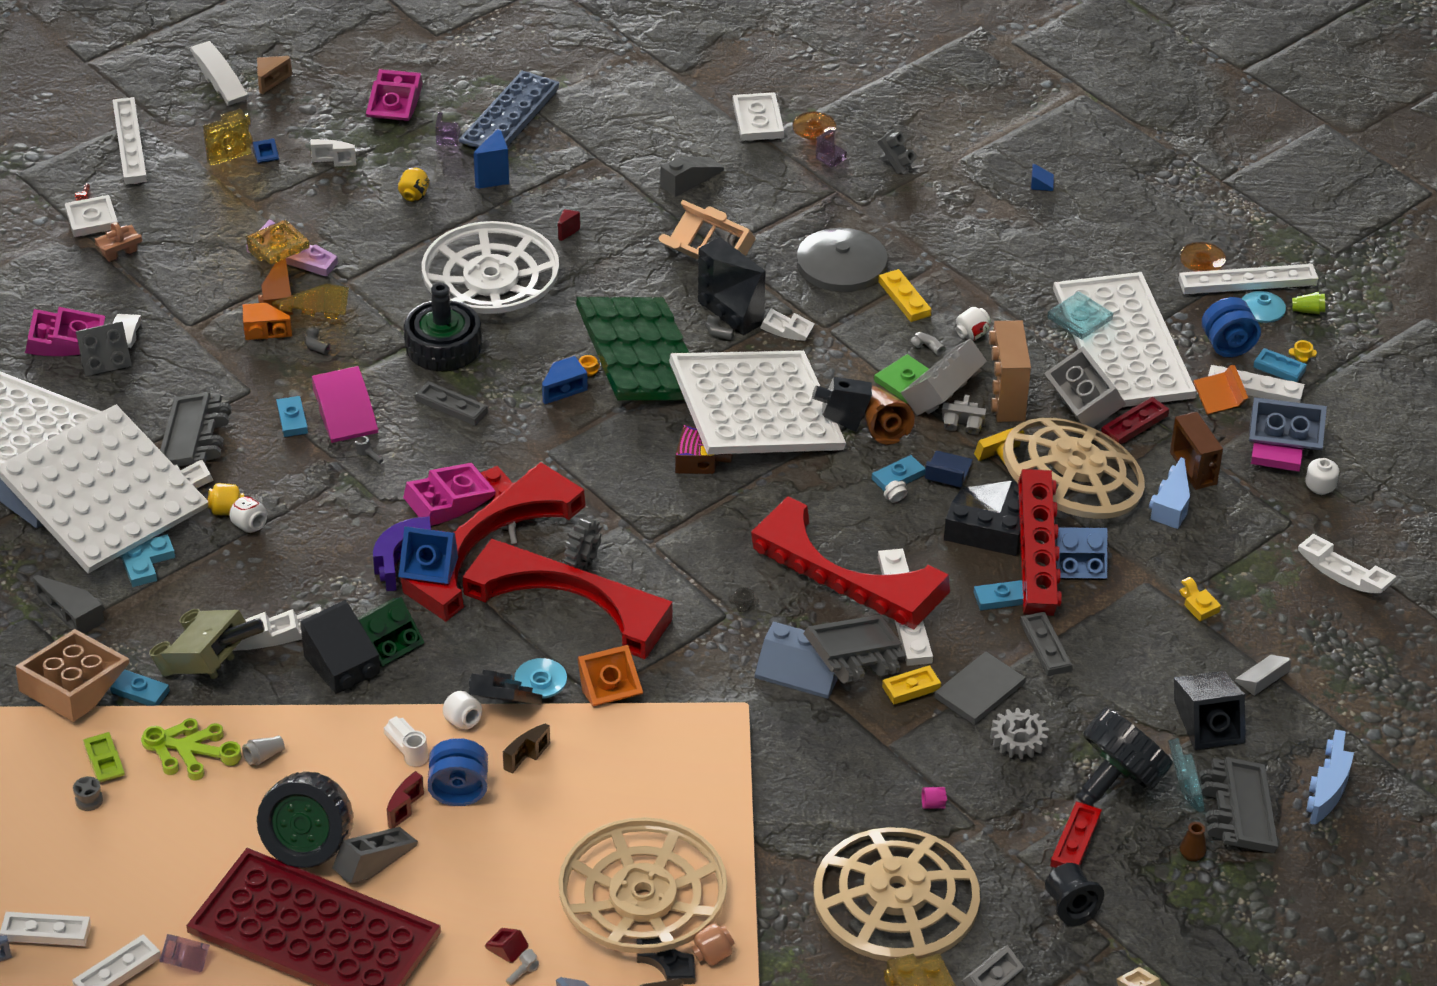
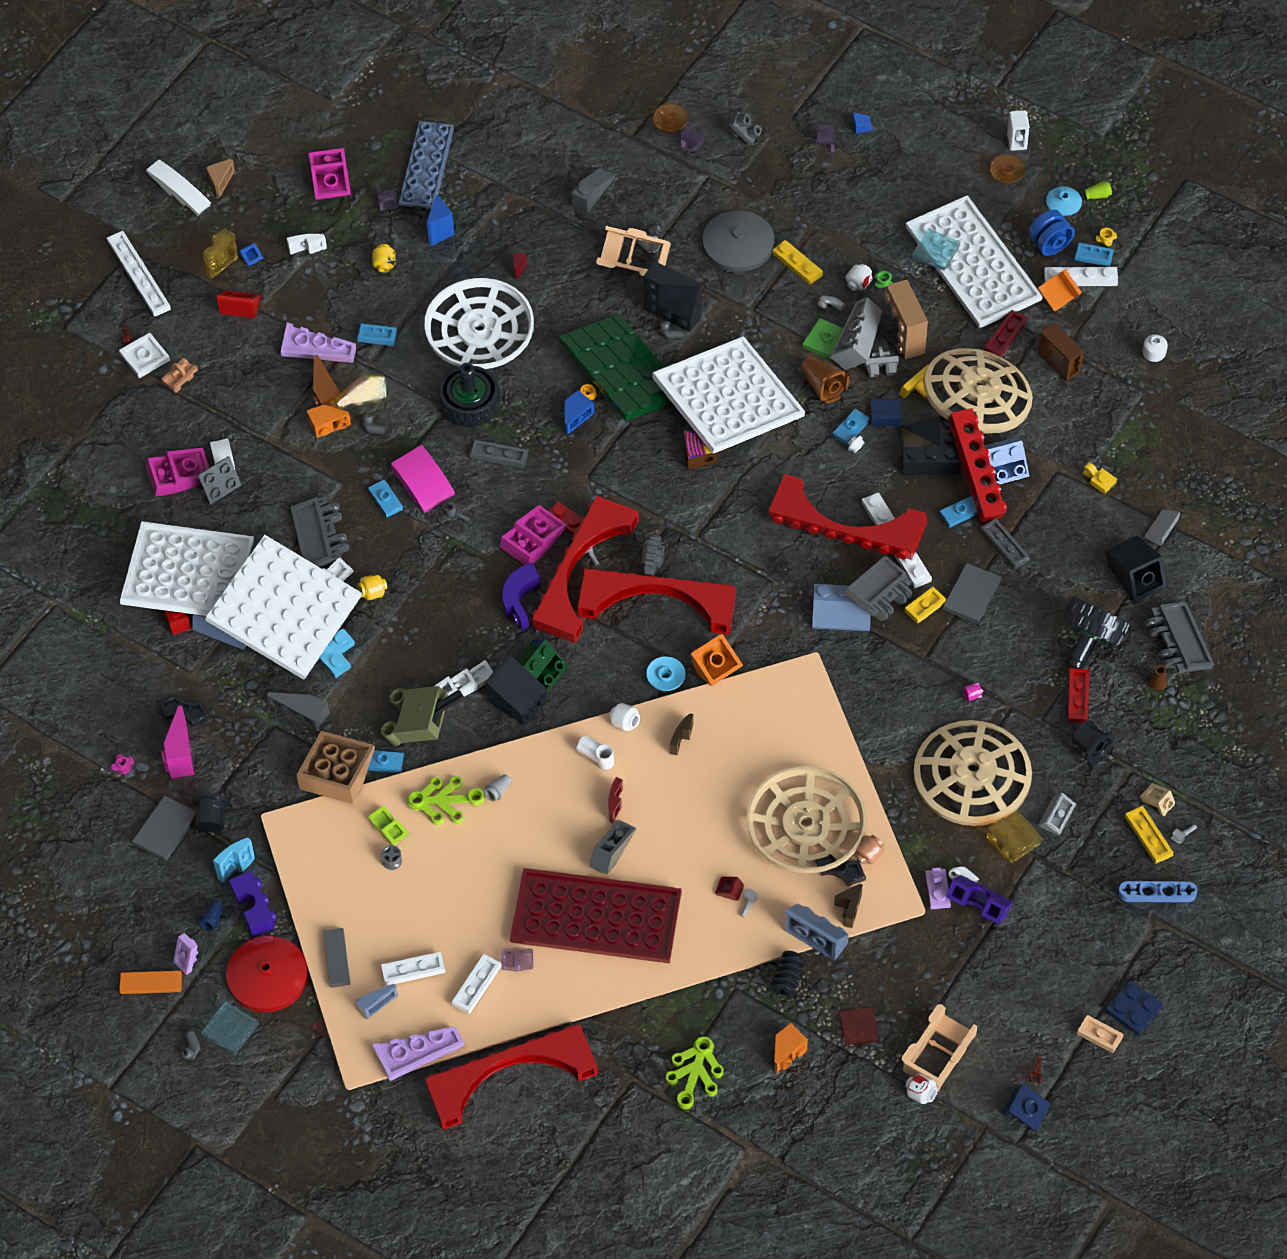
camera: 15 degrees left, 15 degrees up
(224, 192) = (238, 303): none -> red slope
(248, 514) = (395, 595): white head -> none
(276, 242) = (309, 347): clear yellow plate -> none
(304, 819) = (561, 839): black wheel -> none
(368, 254) = (377, 334): none -> dark azure plate
(428, 555) = (549, 600): blue slope -> none
(458, 772) = (646, 769): blue wheel -> none
(501, 687) = (647, 693): black plate -> none
(758, 116) = (623, 118): white plate -> none
(783, 326) = (721, 316): white slope -> none
(844, 401) = (794, 378): black torso -> none
(992, 179) = (826, 135): none -> clear purple panel
(1019, 733) = (1013, 617): light grey gear -> none
(1085, 388) = (963, 318): light grey brick -> none
(1173, 497) = (1056, 394): light blue slope -> none
(1187, 775) = (1139, 627): clear light blue slope -> none
(1229, 220) = (1018, 130): none -> white brick
(1248, 279) = (1046, 179): white plate -> none
(1276, 456) = (1115, 334): dark pink slope -> none
(1287, 423) = (1117, 310): sand blue slope -> none
(1321, 555) = (1193, 424): white slope -> none
(1330, 779) = (1234, 600): light blue slope -> none

